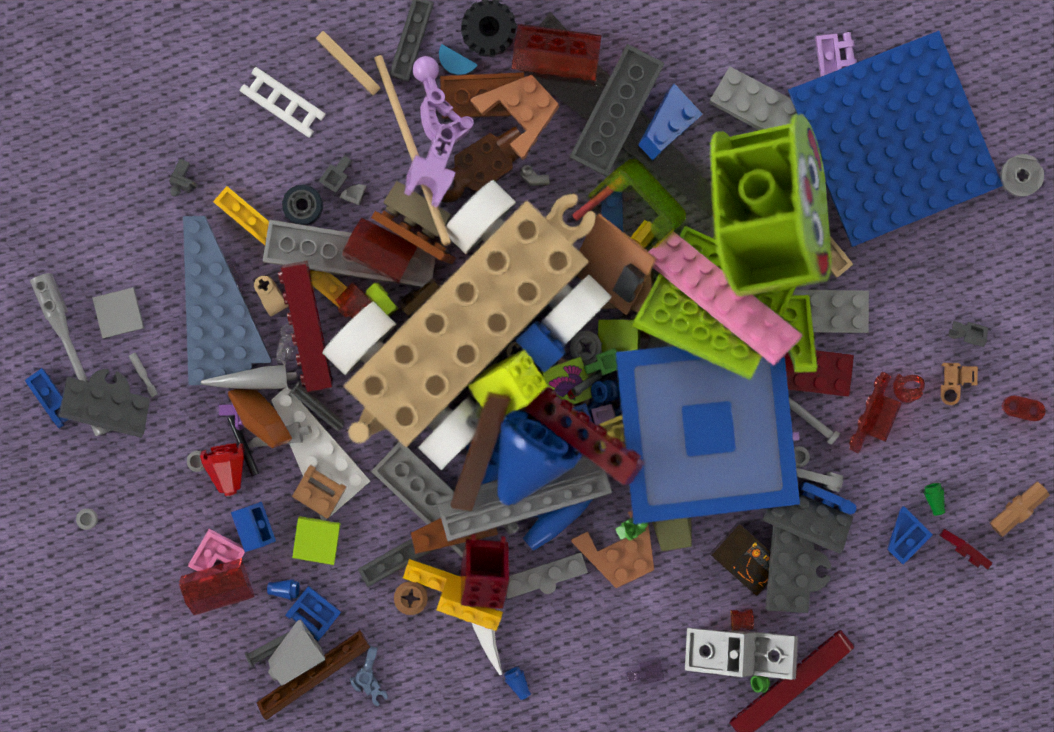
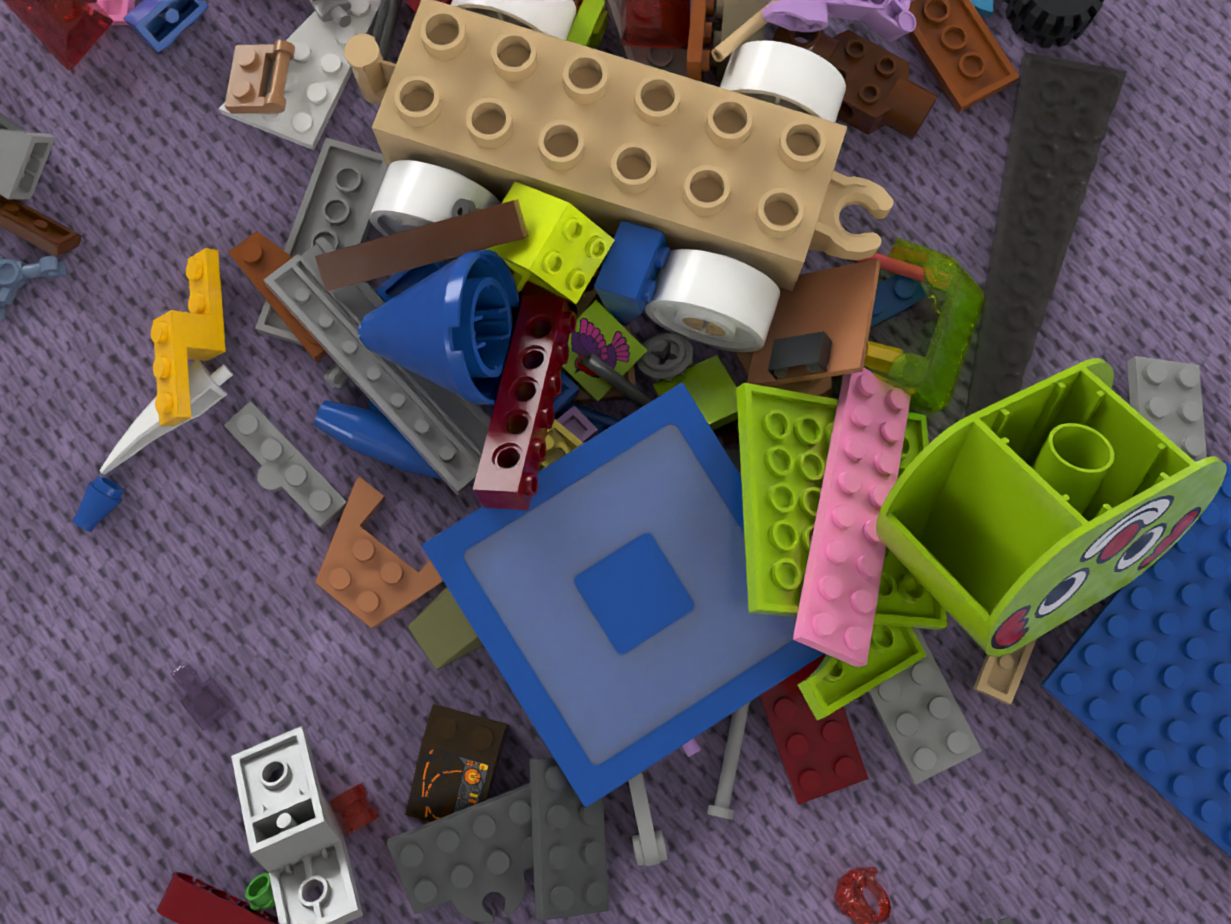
camera: 65 degrees right, 10 degrees down
(286, 589) = (94, 102): blue cone -> none
(316, 540) = (186, 109): lime tile -> none
(318, 608) = (86, 160): blue plate -> none
(389, 562) = (199, 229): dark grey tile -> none
(402, 603) = (148, 277): medium nougat gear -> none
(484, 573) = (238, 359): dark red container -> none
(526, 103) = (980, 94): nougat wing -> none
(532, 178) = (874, 161): light grey arm -> none
(556, 52) = (1076, 100): clear red slope -> none
(605, 362) = (649, 385): bright green plate -> none
(605, 391) = (610, 406): blue wheel -> none
(616, 110) = (1044, 226): dark grey plate -> none
(630, 530) = (414, 559): bright green piece -> none
(669, 122) = (1069, 311): wedge -> none
(801, 456) = (663, 774): light grey tile -> none
(828, 498) = (619, 853): blue hinge -> none
(878, 416) = (792, 868): clear red bracket -> none

